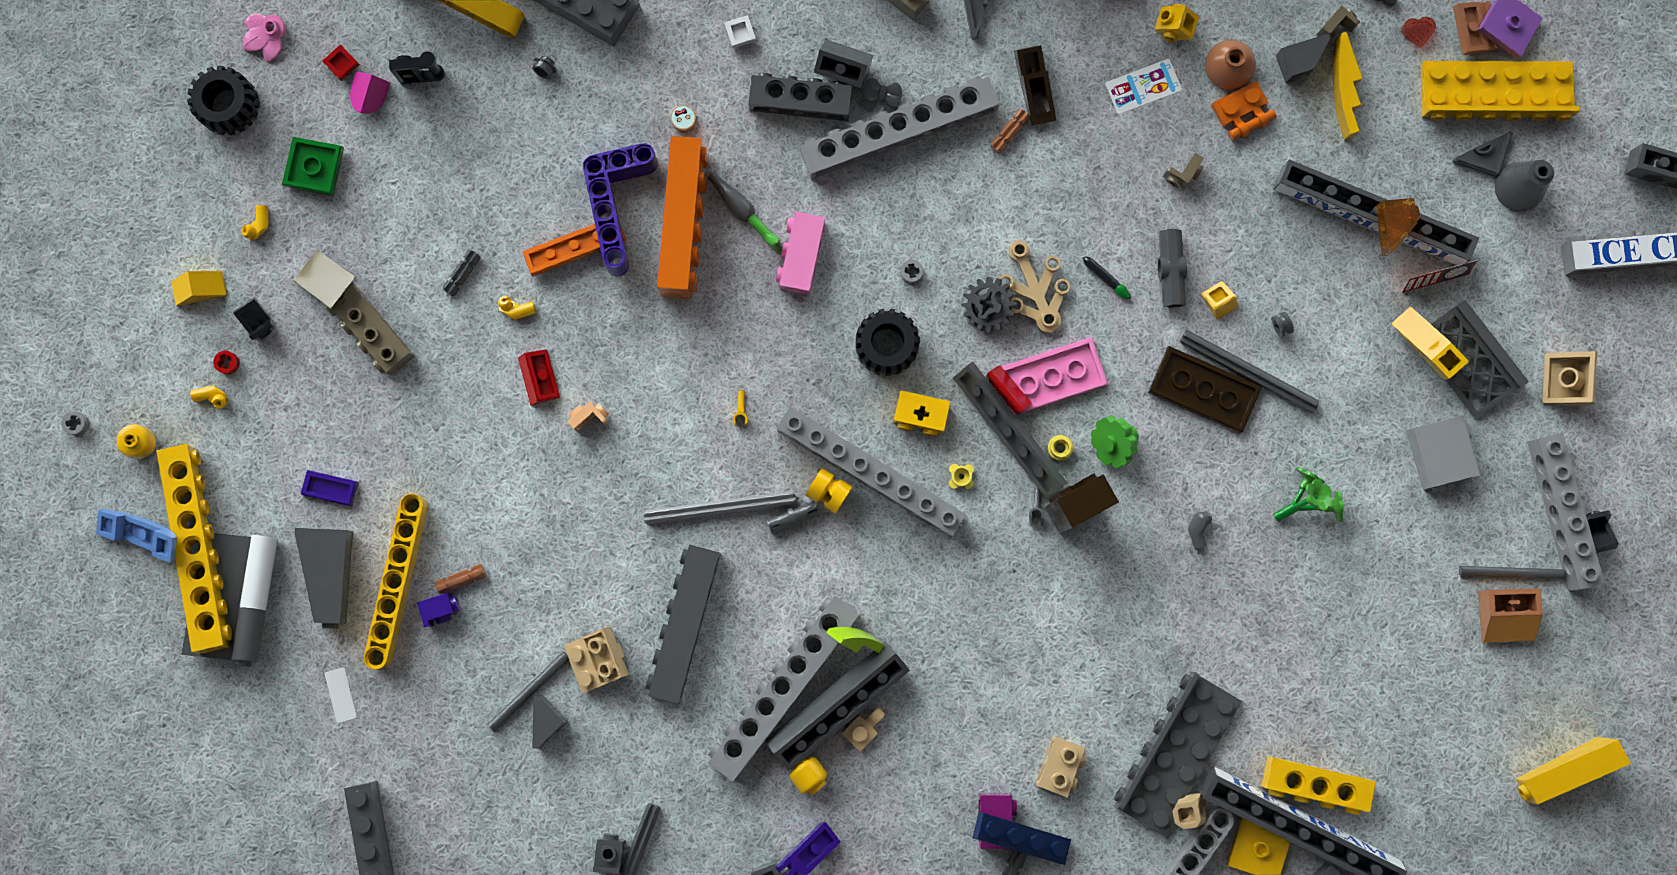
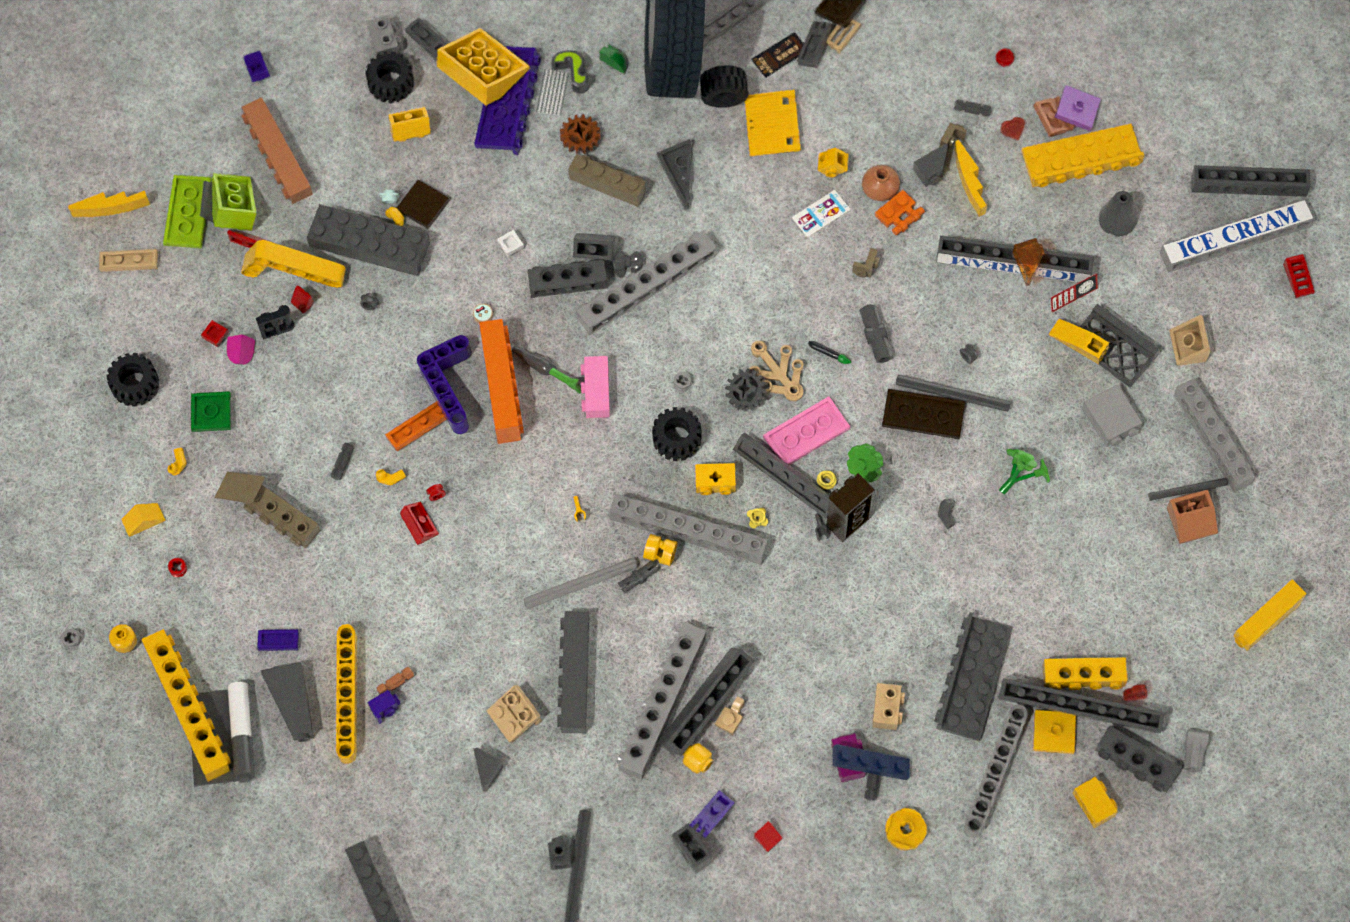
camera: 10 degrees left, 15 degrees down
(139, 531) = (140, 704): medium blue slope -> none
(212, 394) = (172, 593): yellow arm -> none
(254, 319) = (192, 530): black bracket -> none
(261, 37) = (149, 329): bright pink plate -> none
(340, 695) = (322, 790): white sticker -> none
(459, 44) = (301, 299): none -> red slope
(528, 691) = (467, 751): dark grey bar -> none
(568, 344) = (436, 492): none -> red bush
(581, 416) = (459, 540): light nougat bracket -> none
(855, 638) = (708, 648): lime slope -> none
(1008, 390) = (776, 446): red slope -> none
(1009, 131) = (729, 266): nougat axle -> none
(1035, 84) = (739, 229): dark brown slope -> none
(1190, 811) = (992, 712): tan rock -> none
(1220, 300) = (918, 348): yellow slope -> none
(1372, 825) = (1135, 693): none -> clear red tile
(1487, 157) = (1087, 203): dark grey tile -> none
(1601, 531) = (1244, 442): black bracket -> none

